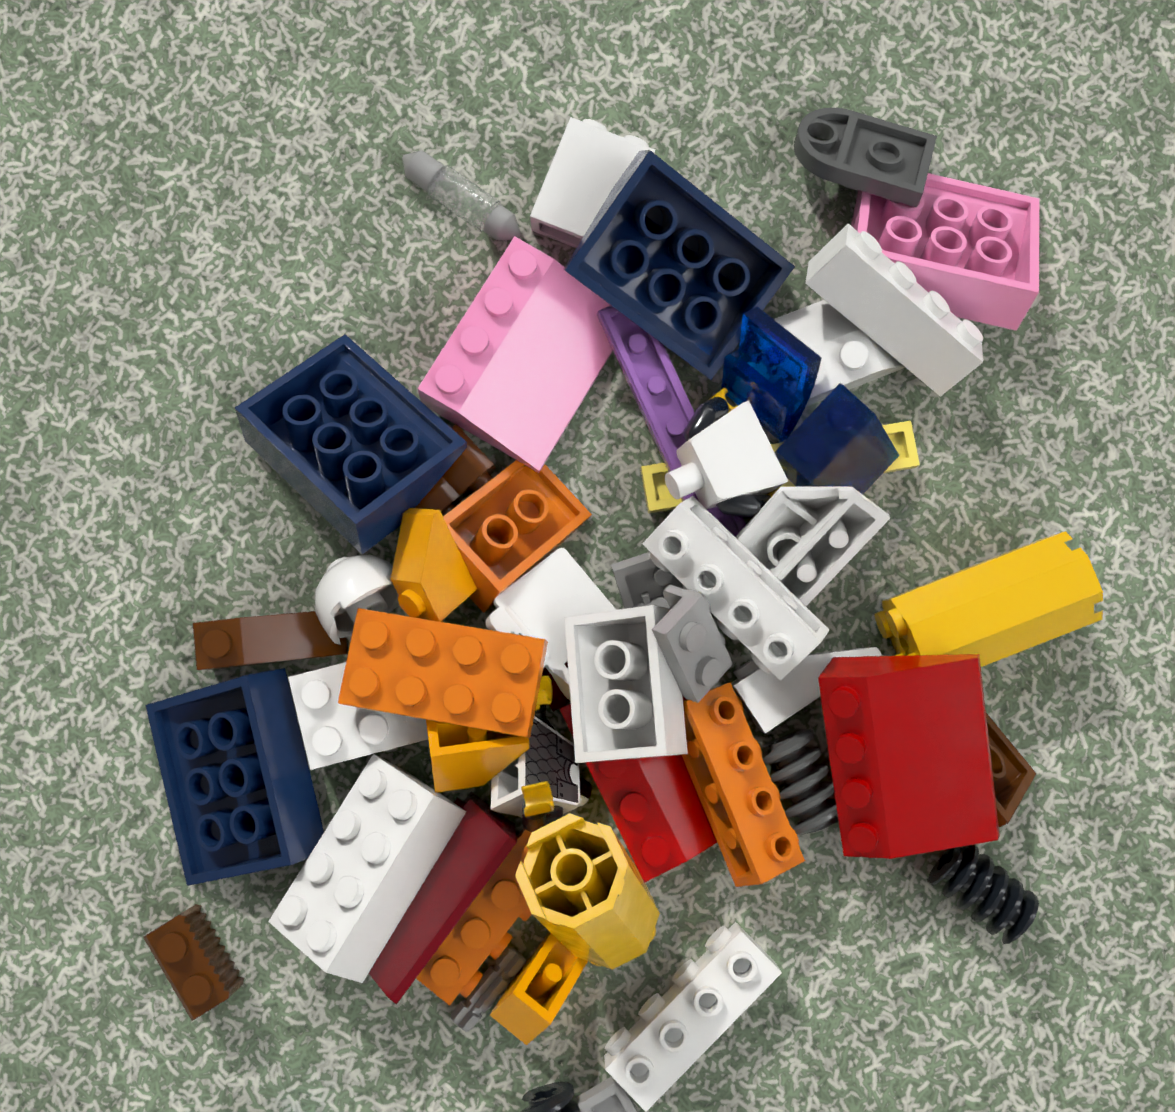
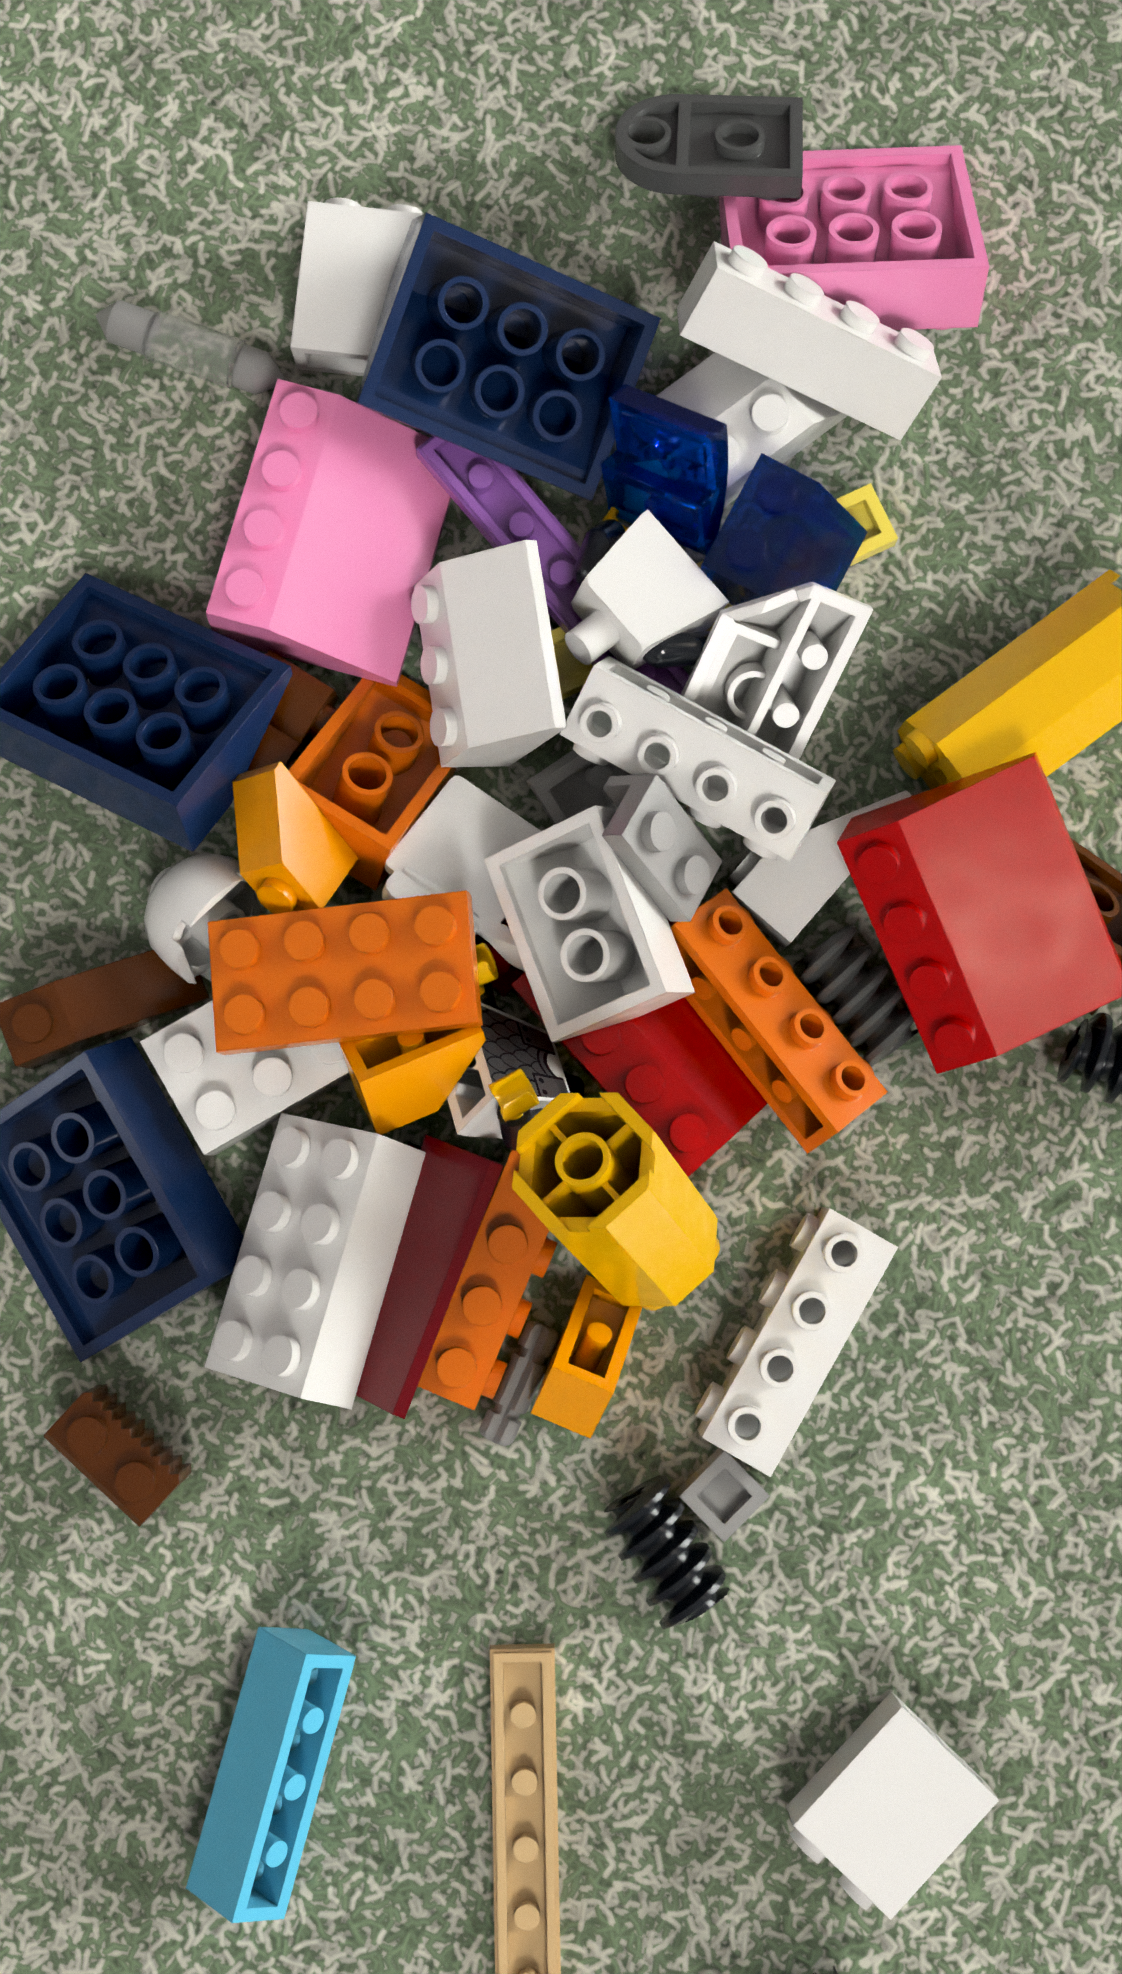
camera: 20 degrees left, 0 degrees up
(608, 472) = (488, 656): none -> white slope

